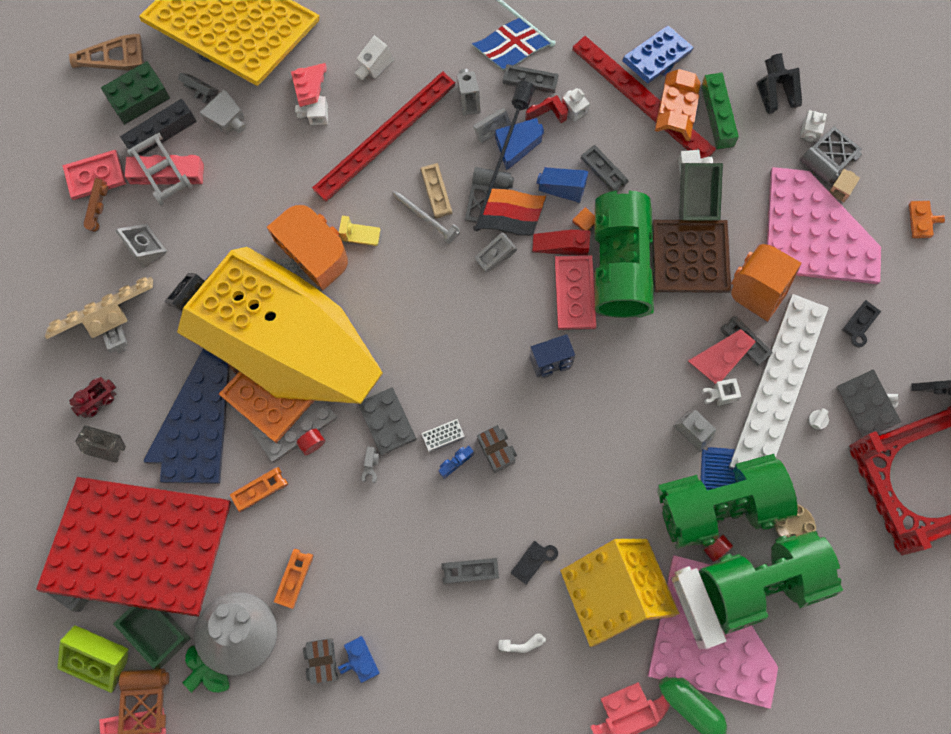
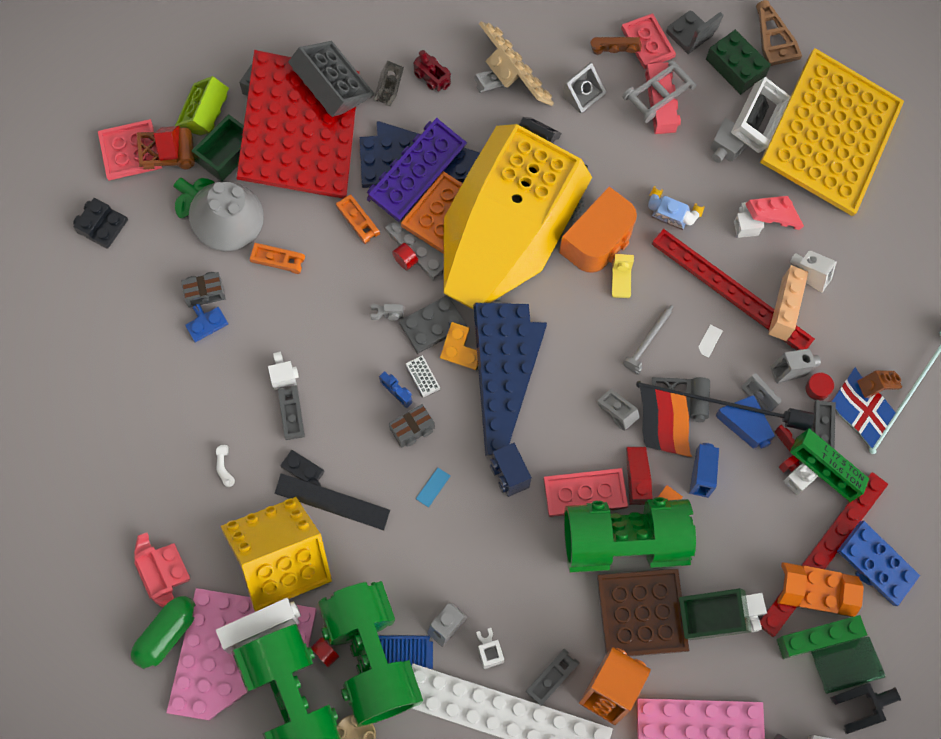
camera: 80 degrees right, 5 degrees down
(85, 505) = (330, 77): none -> dark grey slope
(91, 131) = (691, 31): none -> dark grey piece
(136, 697) = (167, 142): none -> red slope
(166, 122) = (708, 89): black brick -> none
(212, 421) = (416, 169): none -> dark purple bracket
(232, 81) = (746, 132): none -> white window
(294, 178) = (672, 211): none -> light blue torso
(407, 85) = (788, 303): none -> light nougat brick
(419, 399) = (455, 349): none -> light orange plate
(425, 160) = (710, 340): none -> white sticker
(428, 577) = (282, 373): none -> white brick
(431, 350) = (506, 358): none -> dark blue wing
(436, 190) = (679, 347): tan tile -> none
(488, 75) = (819, 386): none -> red piece
(492, 25) = (879, 381): none -> dark orange bracket
(558, 434) = (433, 487): none -> dark azure sticker
(566, 535) = (332, 501): none -> black sticker
(568, 76) = (829, 465): none -> green brick
(604, 168) = (731, 513): dark grey plate -> none
(723, 356) = (530, 651): coral wing -> none
(744, 95) = (848, 665): none -> clear green piece

